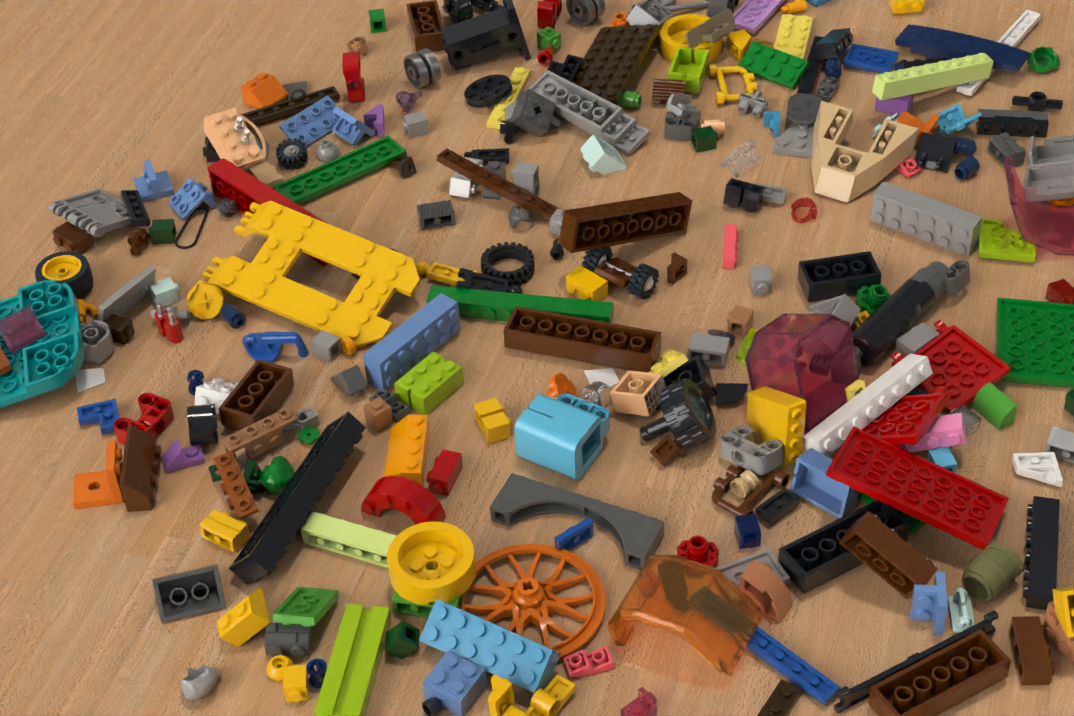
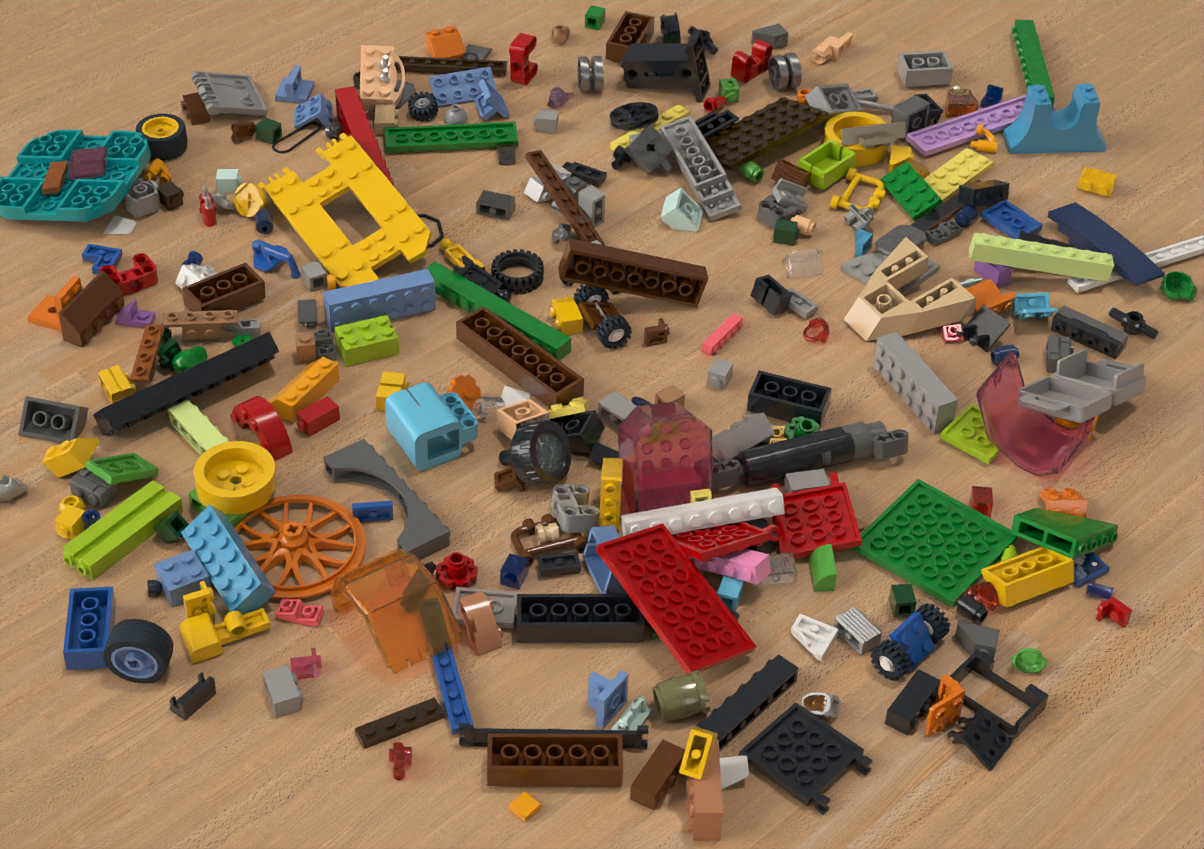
camera: 25 degrees right, 0 degrees up
(128, 295) = (192, 171): light grey plate -> none
(135, 208) = (260, 102): black tile -> none
(202, 424) = (164, 295): black brick -> none
(376, 119) = (518, 104): medium lavender slope -> none
(887, 554) = (595, 636): reddish brown brick -> none
(964, 147) = (1018, 334): dark blue brick -> none

